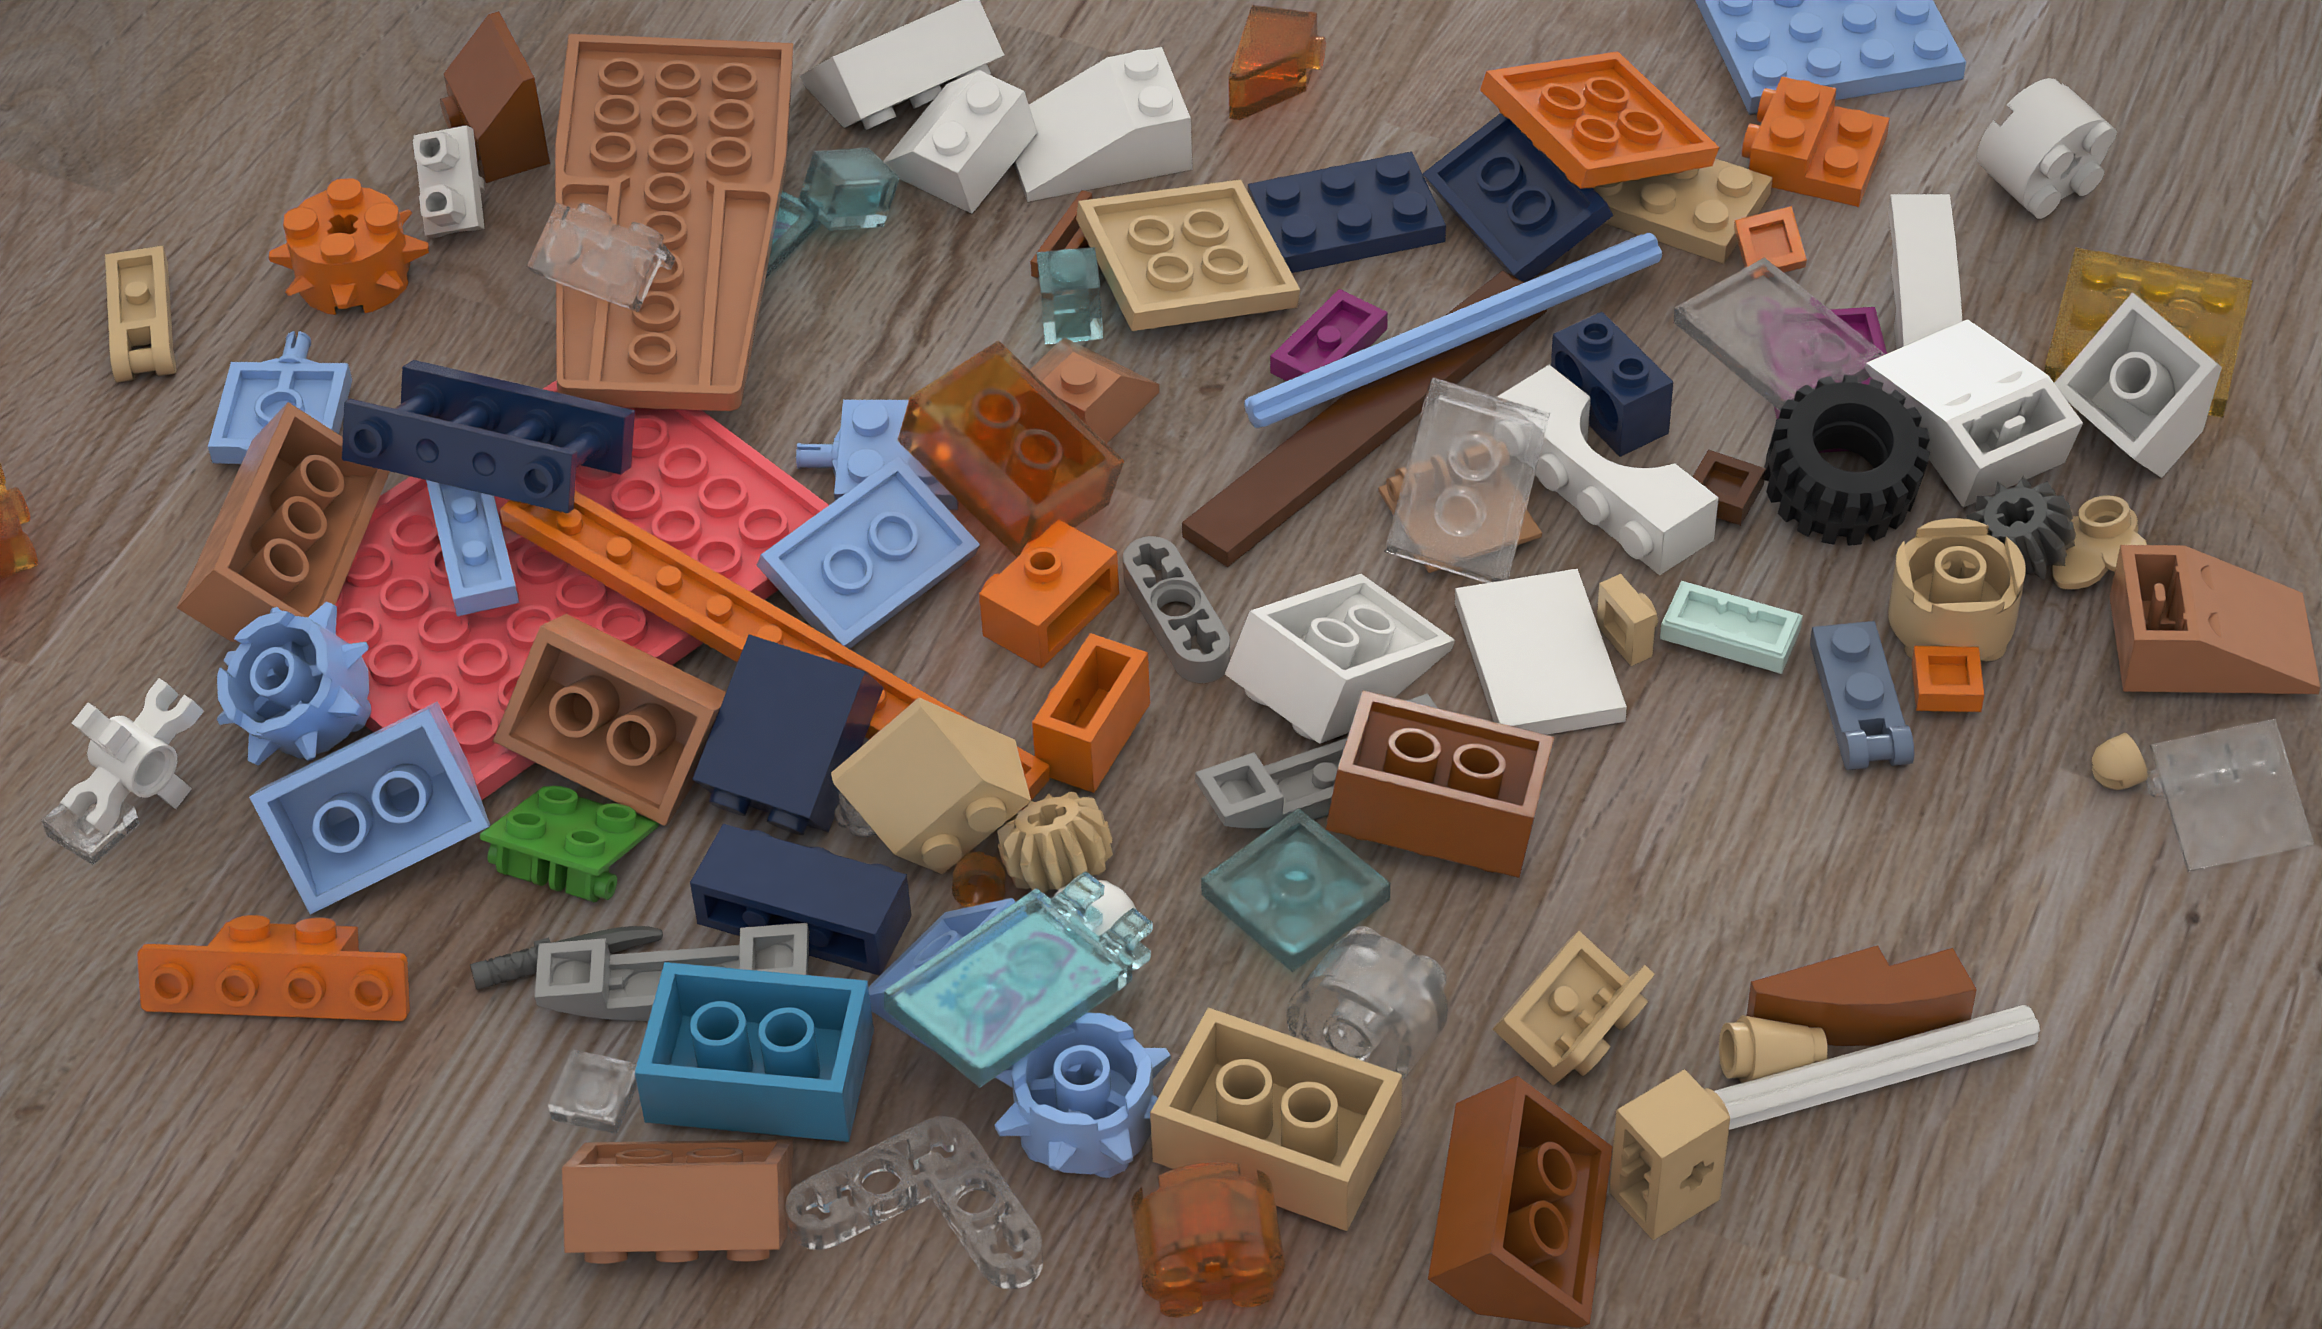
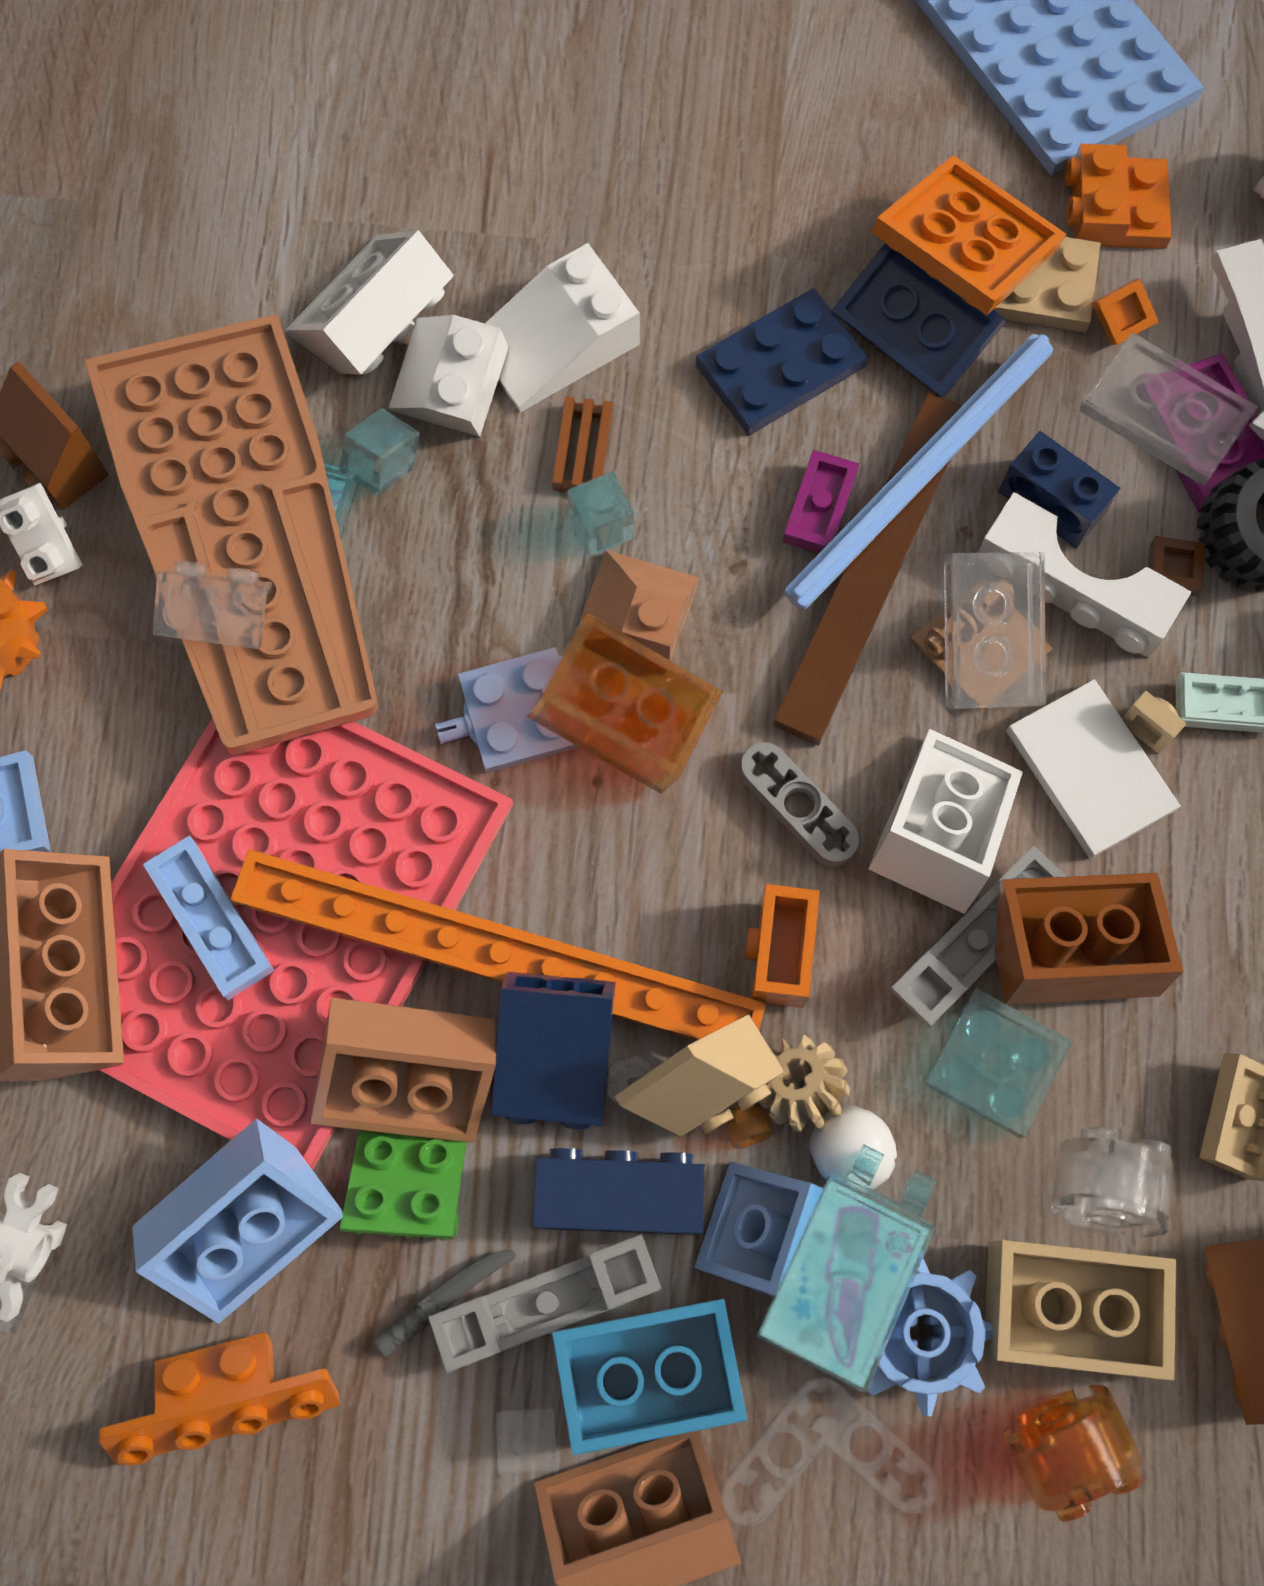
camera: 20 degrees left, 25 degrees up
(294, 684) = (122, 1125): light blue brick -> none
(488, 435) = (188, 784): dark blue fence -> none
(868, 554) = (541, 833): light blue plate -> none
(1049, 593) = (697, 824): orange brick -> none
(1187, 255) = (678, 446): tan plate -> none
(1273, 59) = (671, 219): clear orange slope -> none

